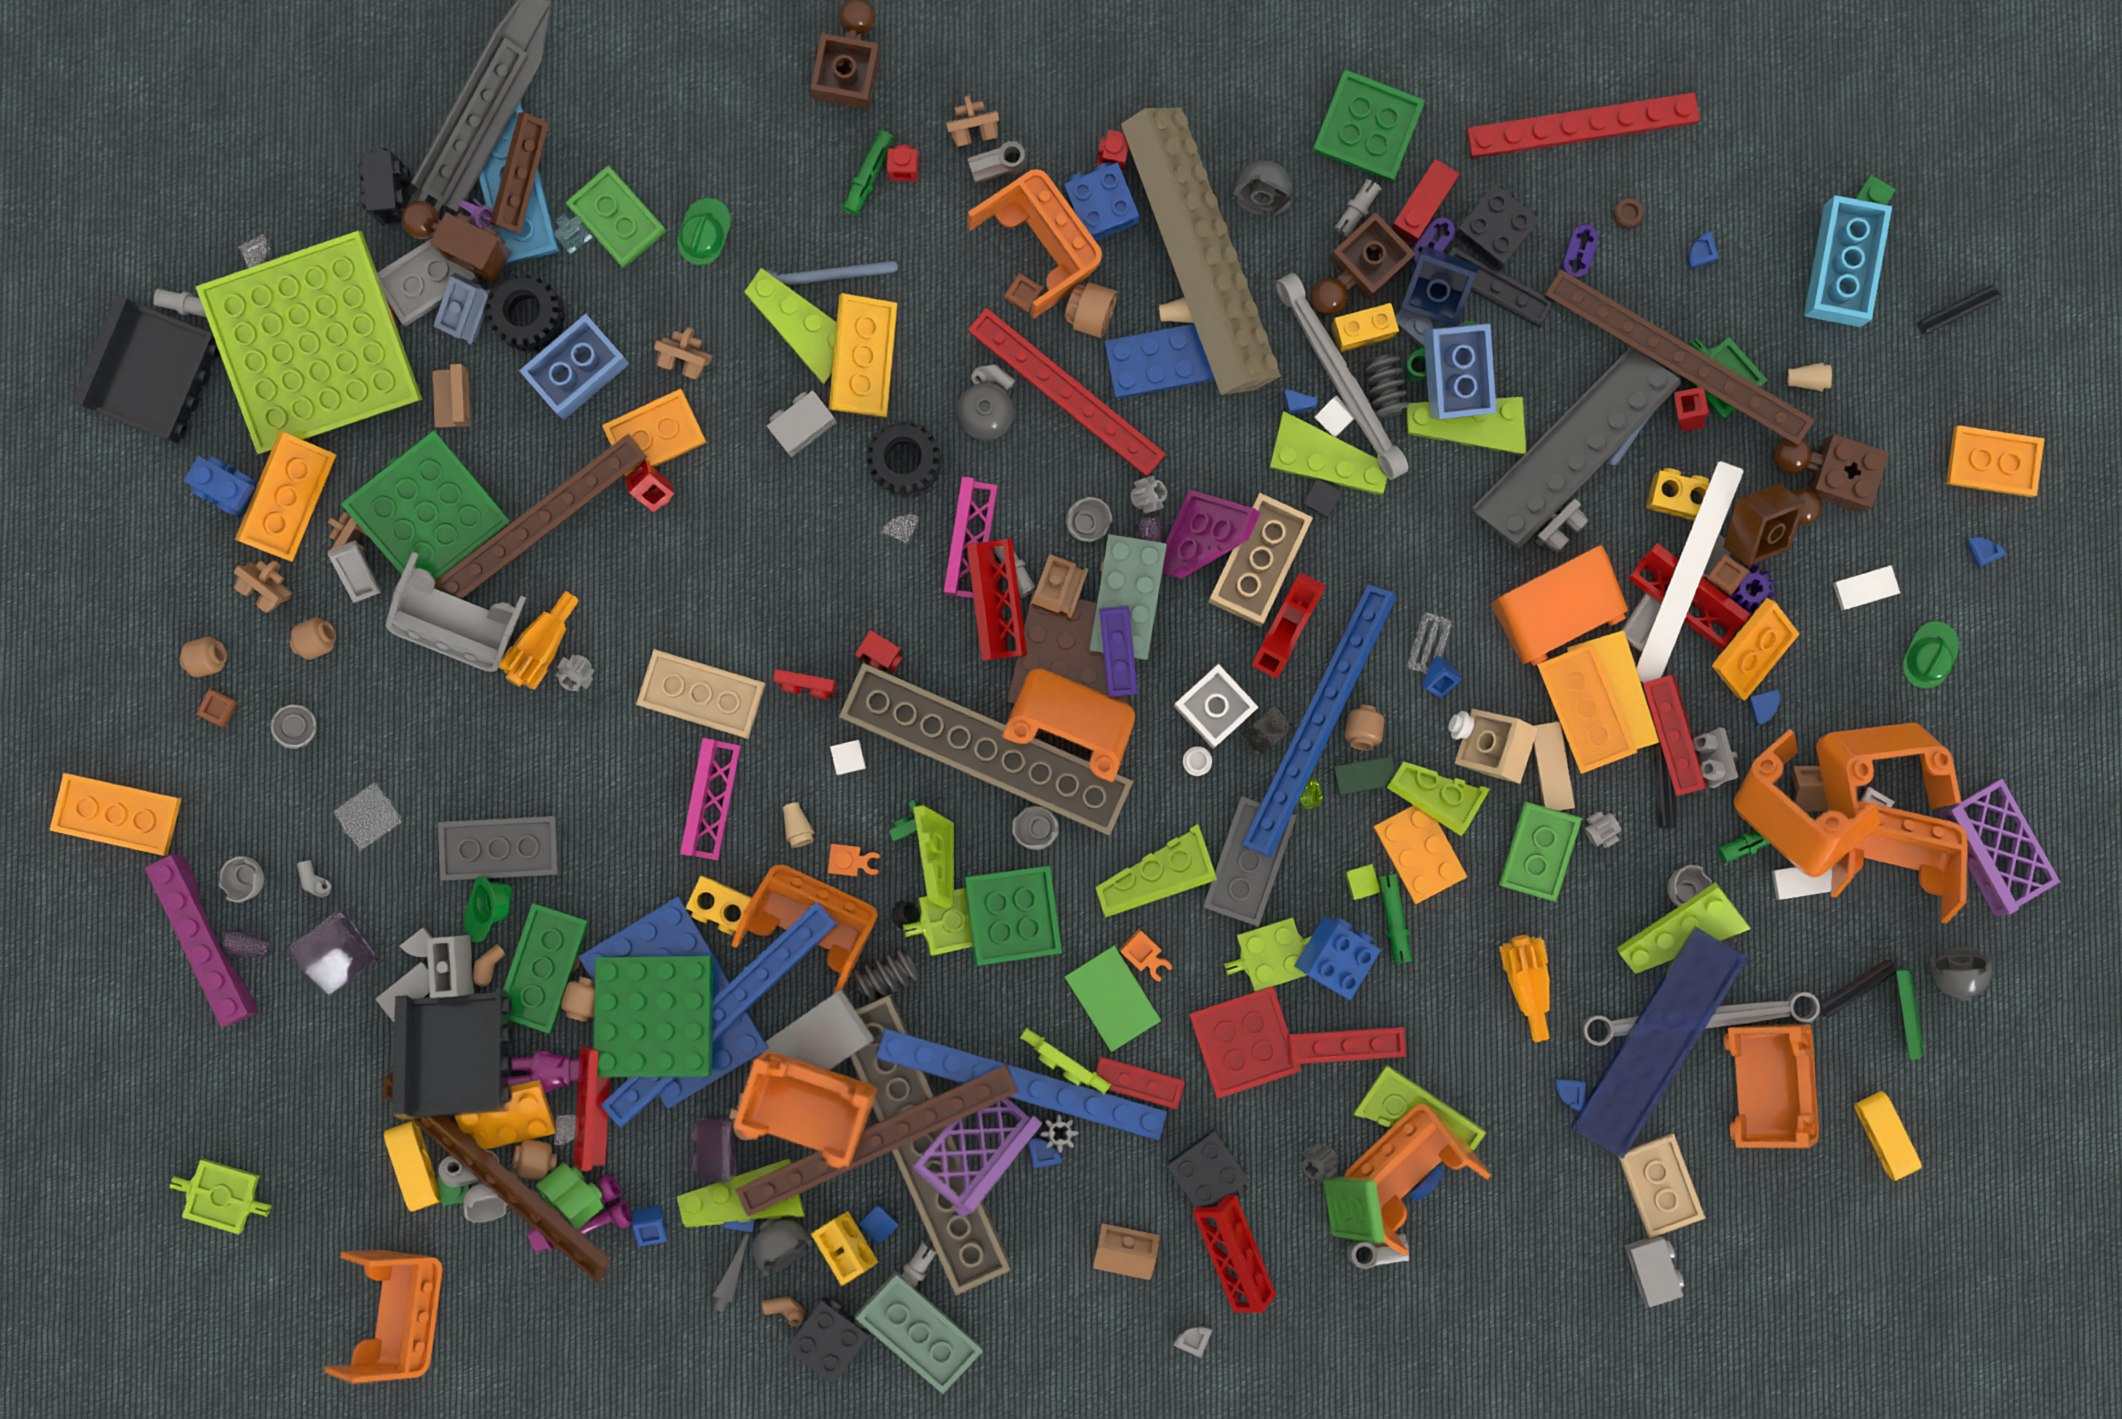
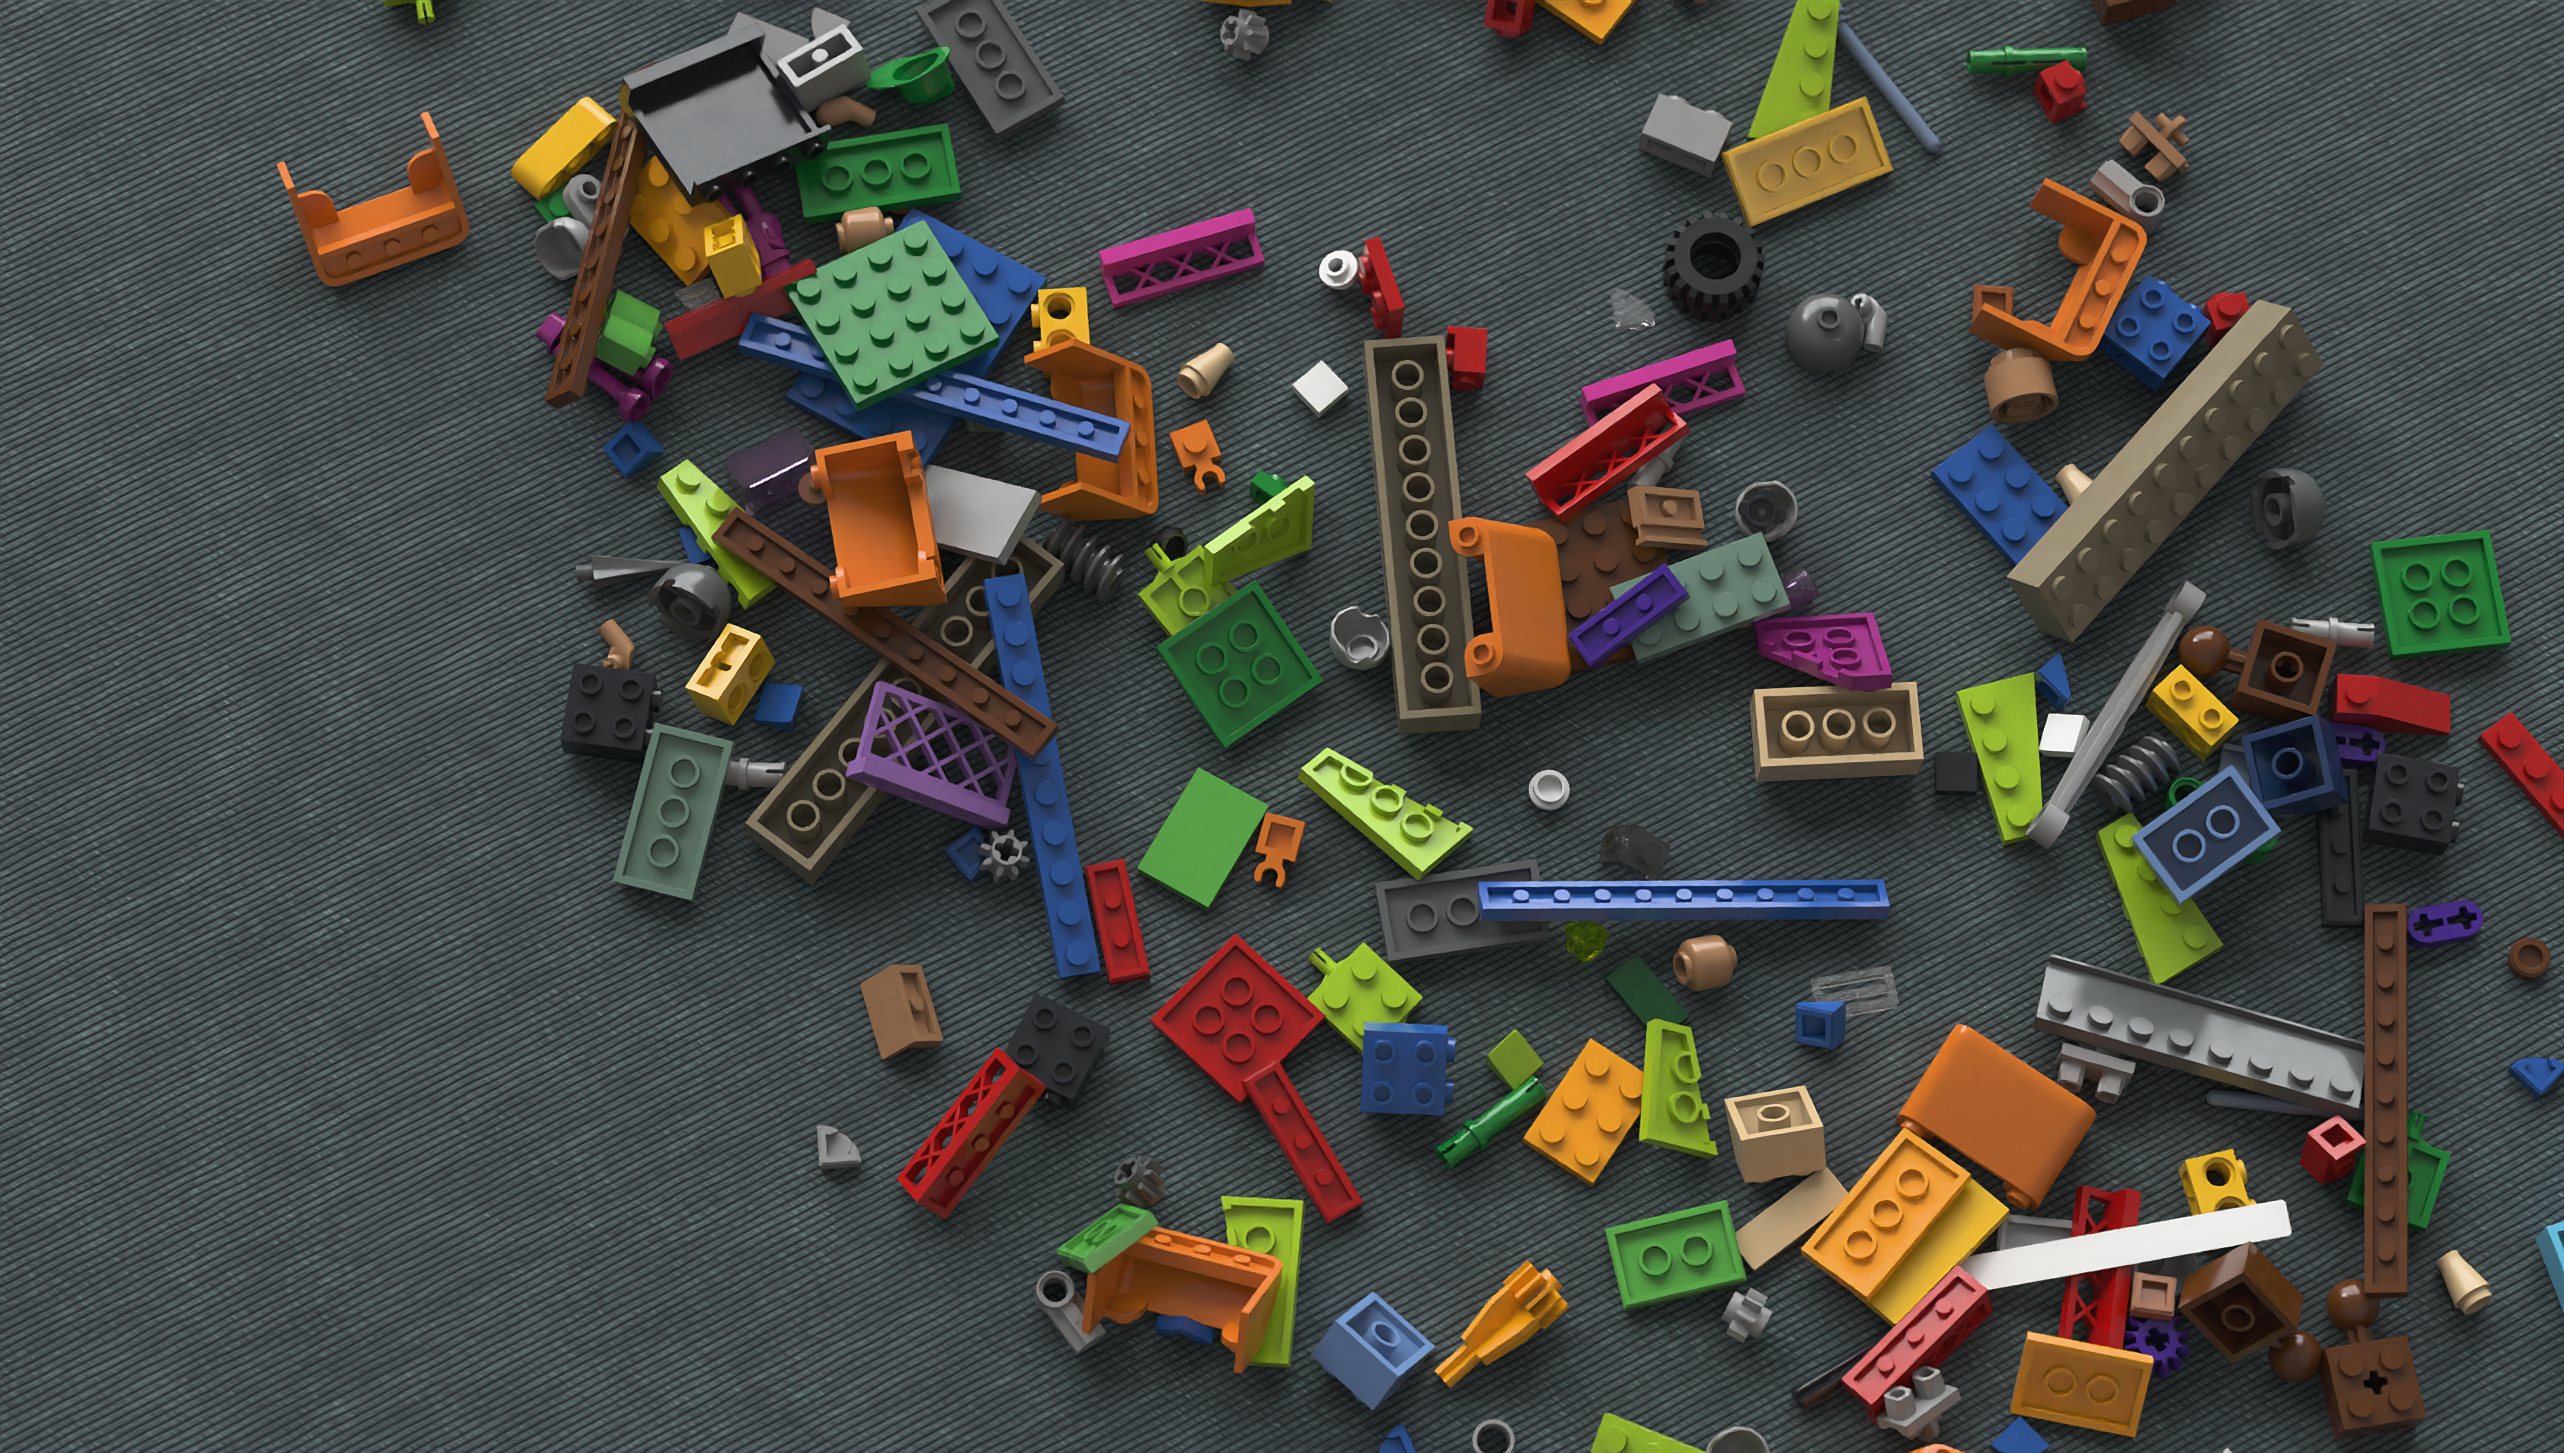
camera: 55 degrees right, 15 degrees down
(533, 1159) = (645, 275): medium nougat head -> none
(558, 1103) = (733, 257): none -> yellow brick
(701, 694) = (1299, 187): tan tile -> none
(780, 697) = (1343, 278): none -> white plate
(1053, 1057) = (1092, 821): lime plate -> none
(1066, 392) = (1903, 413): red plate -> none
(1096, 530) = (1763, 500): none -> black plate
(1148, 494) = (1837, 565): light grey gear -> none
(1215, 706) = (1627, 770): white brick -> none
(1288, 625) = (1775, 809): red arch -> none
(1461, 725) = (1775, 1078): white plate -> none
(1502, 1073) = (1372, 1350): none -> medium blue slope

